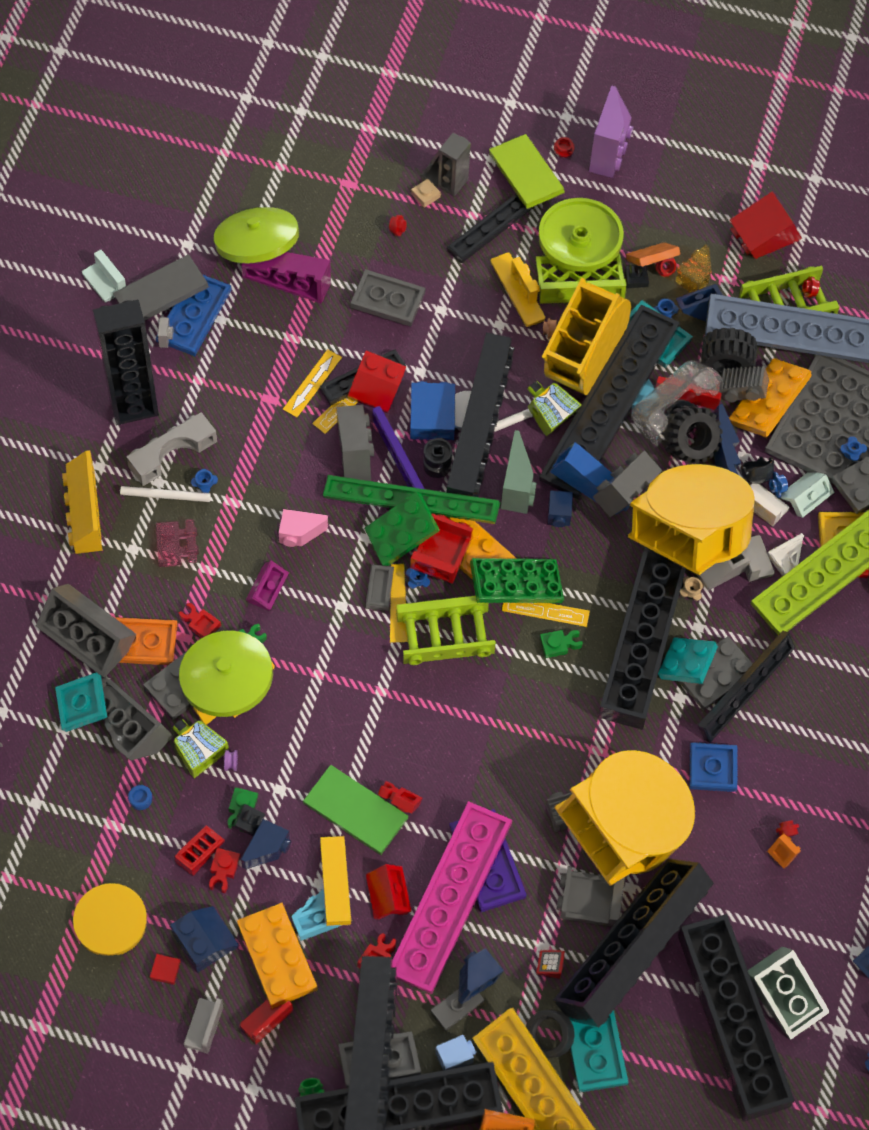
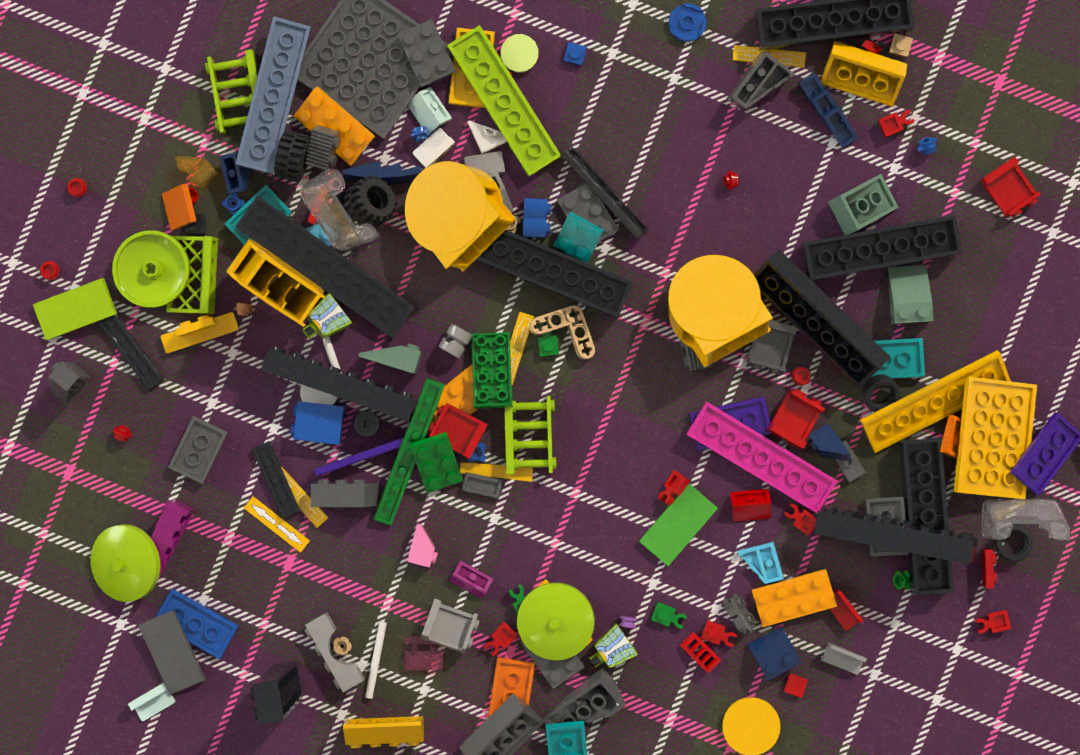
camera: 80 degrees left, 25 degrees up
(140, 797) = (650, 696): blue tile -> none
(165, 332) = (220, 651): light grey plate -> none
(179, 452) = (342, 651): none -> tan plate
(201, 475) = (361, 625): blue plate -> none
(210, 562) = (450, 627): none -> light grey panel
(248, 819) = (681, 611): black tile -> none
(259, 886) = (745, 621): none -> dark grey hinge
(266, 845) = (703, 598): dark blue slope -> none
(335, 881) = (739, 546): yellow tile -> none
(376, 381) = (287, 469): red slope -> none
(425, 193) = (87, 403): tan plate -> none
(455, 1053) = (887, 467): light blue brick -> none
(504, 933) = (795, 418): none -> red panel
(545, 540) = (455, 340): none -> light grey wheel
(550, 963) = (821, 384): slope -> none
(558, 938) = (801, 376): none -> red plate
(560, 508) = (425, 324): dark blue brick -> none
(581, 471) = (407, 294): blue slope -> none
(585, 658) = (566, 320): none -> tan beam
(611, 136) = (52, 227): medium lavender slope -> none
(626, 483) = (420, 266): dark grey wedge -> none
(657, 164) = (77, 187): none -> red plate
(680, 1062) = (909, 295): none -> sand green slope
(702, 613) = (535, 218): none -> blue brick
(713, 767) = (669, 230): blue tile -> none
(758, 471) = (405, 149): black hair -> none
(764, 227) = (158, 100): red slope -> none
(784, 850) = (749, 186): orange tile -> none
(810, 287) = (230, 71): red plate -> none
(852, 454) = (395, 69): blue plate -> none

